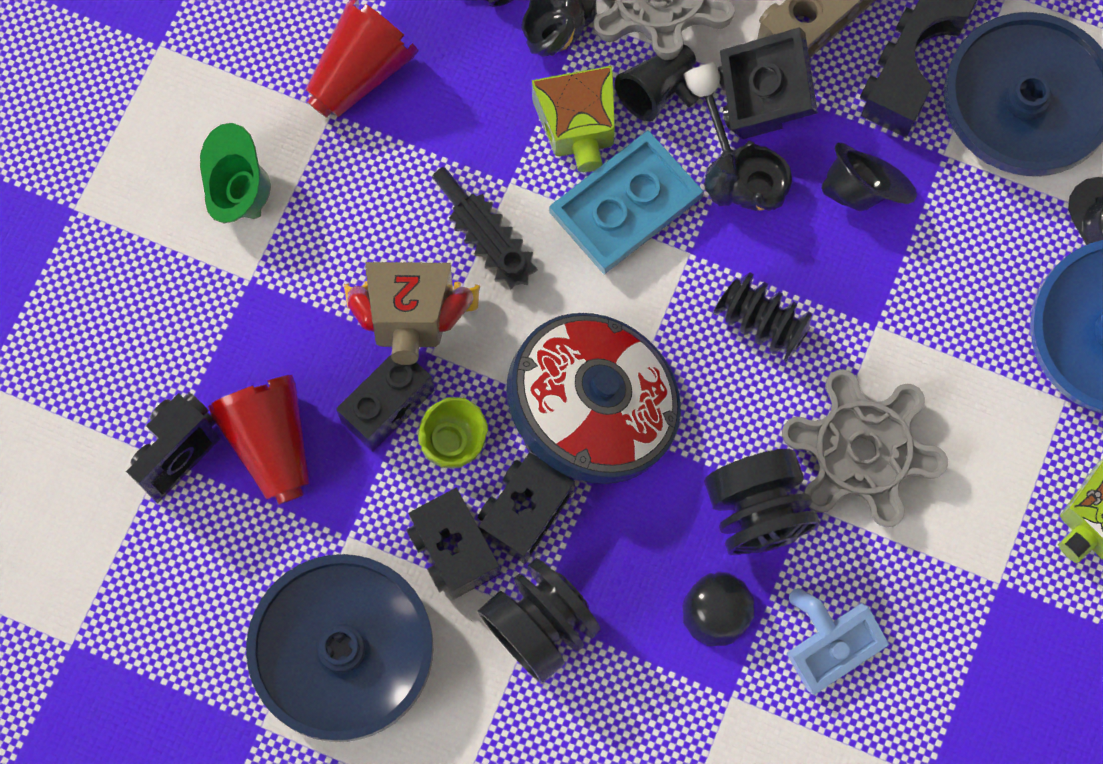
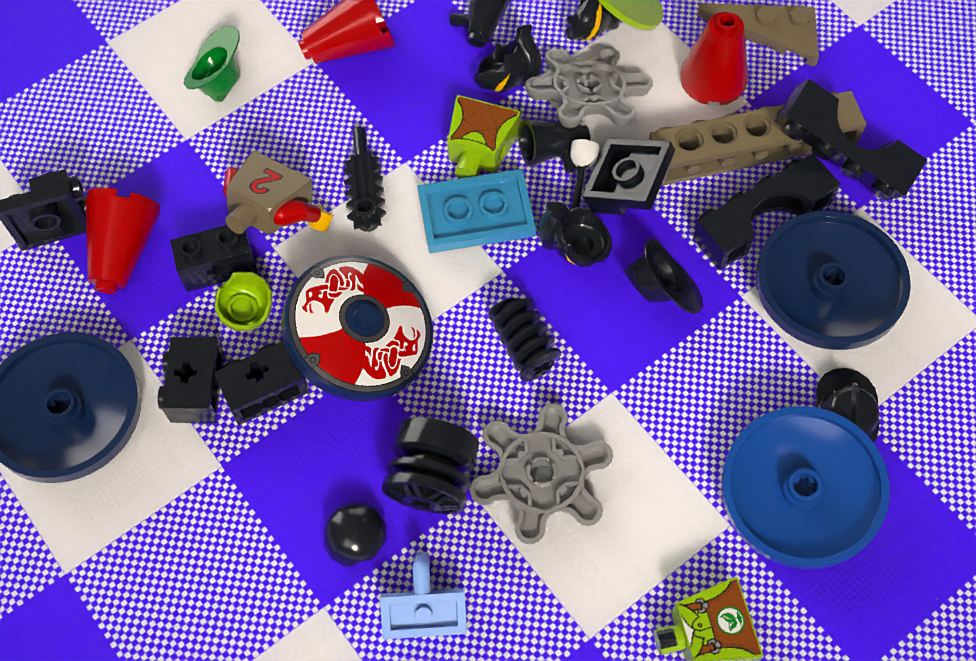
camera: 30 degrees right, 10 degrees down
(539, 620) = (200, 464): black wheel -> none

